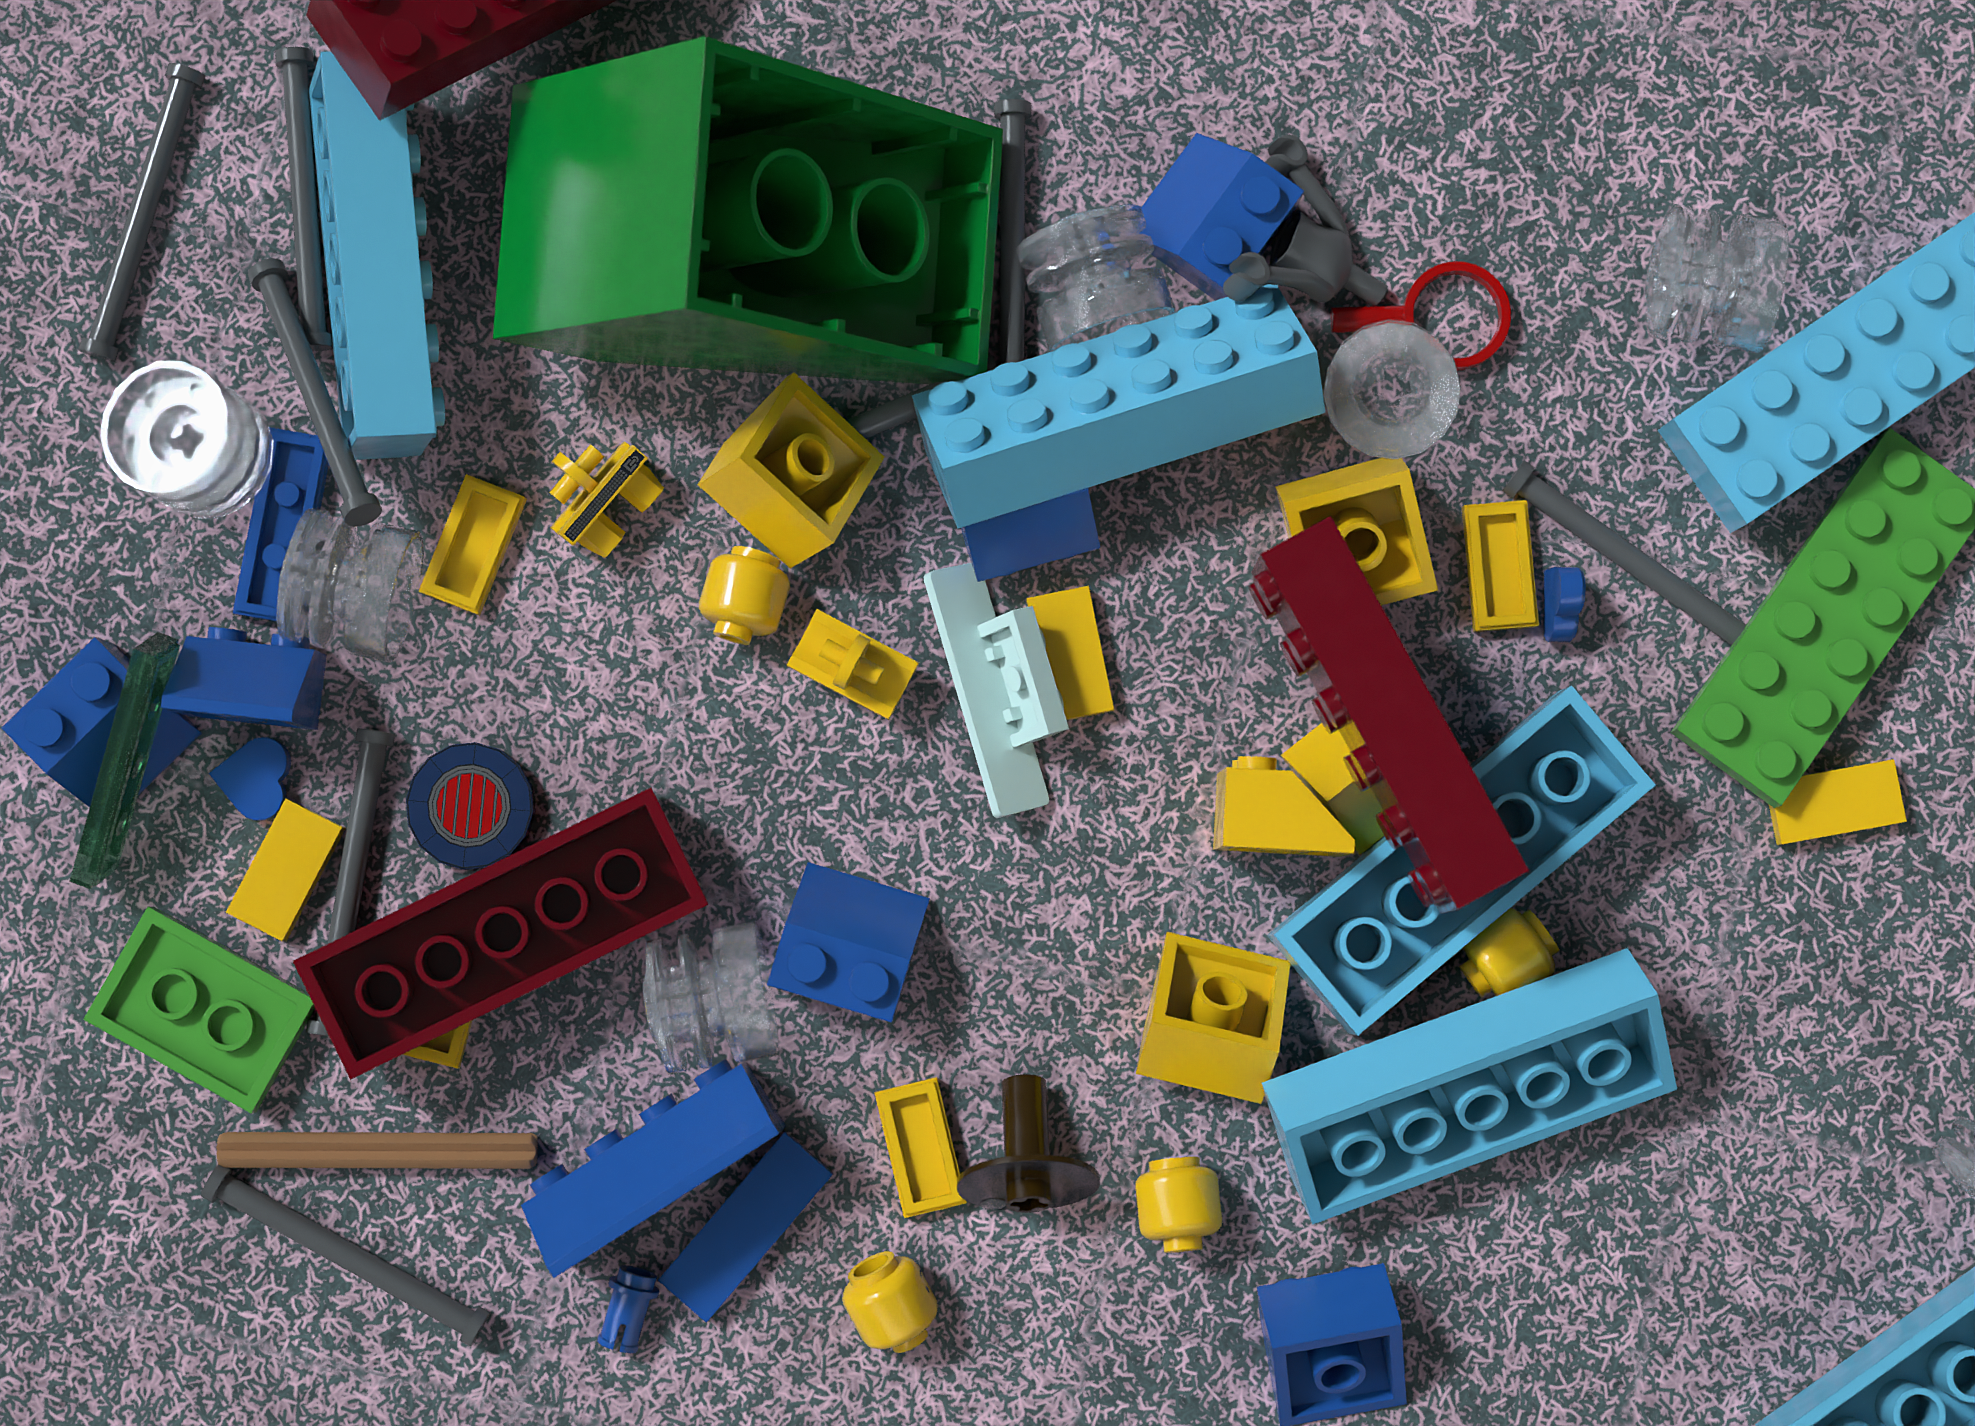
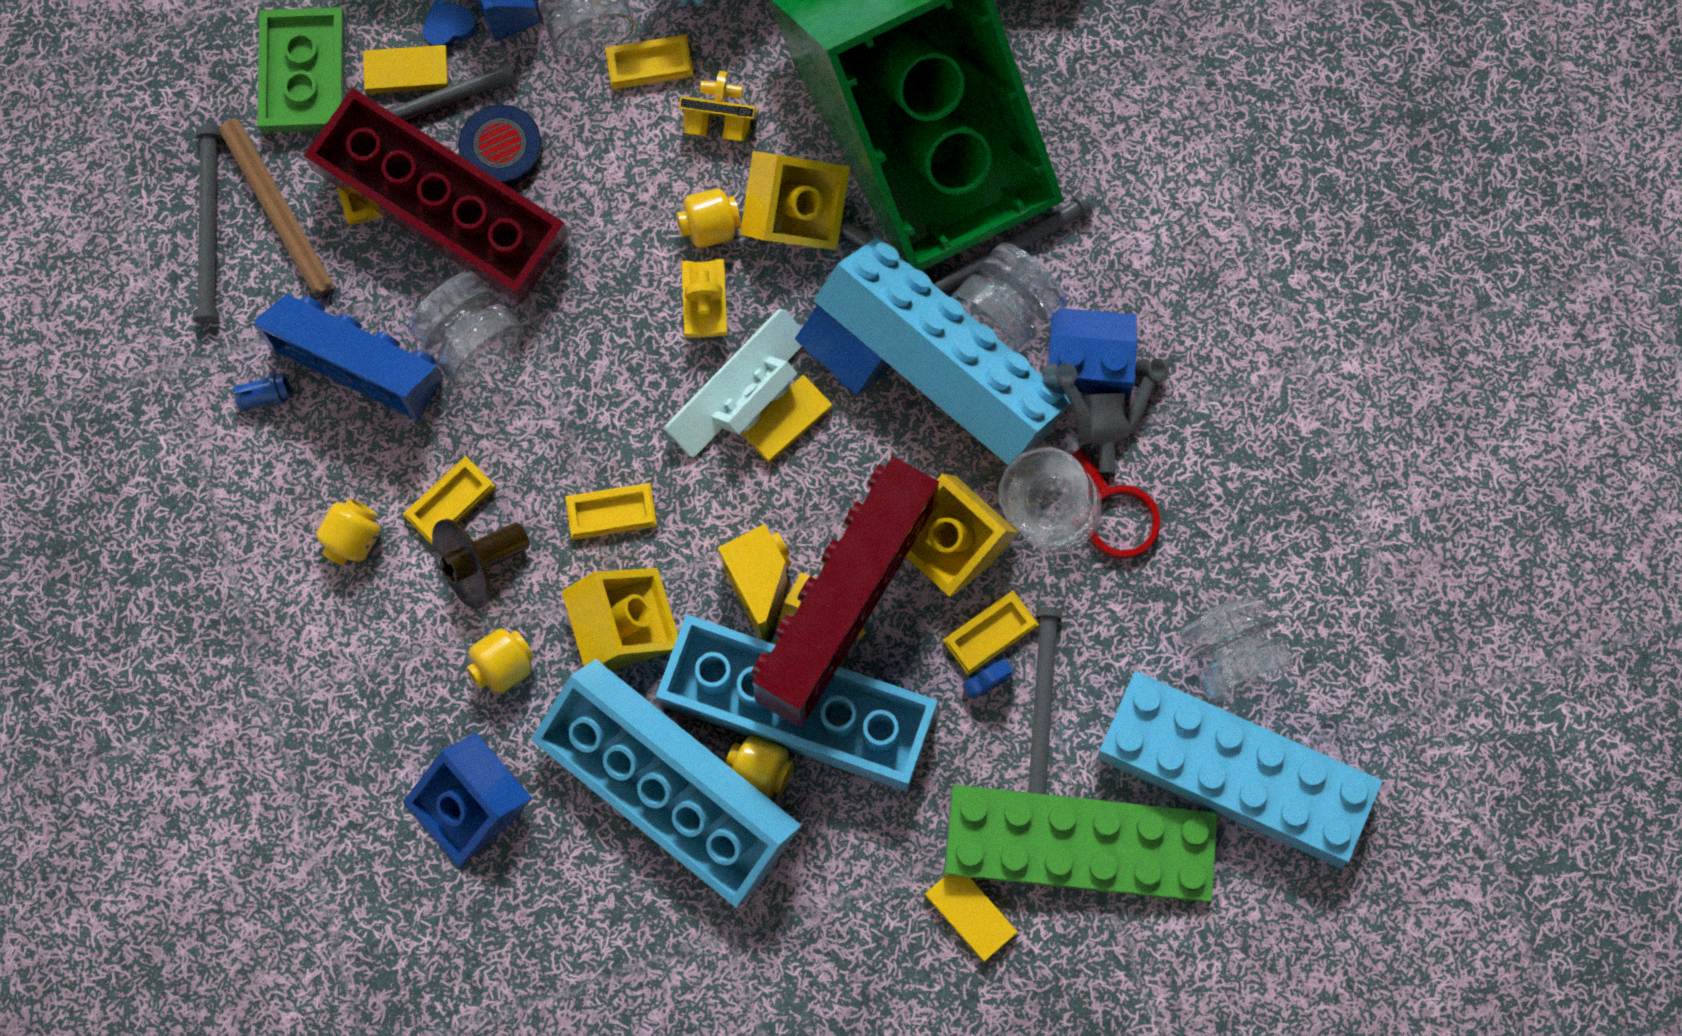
camera: 65 degrees right, 10 degrees down
(745, 1226) = (347, 430): blue tile -> none
(848, 942) = (543, 390): blue slope -> none
(1058, 948) = (611, 511): none -> yellow tile

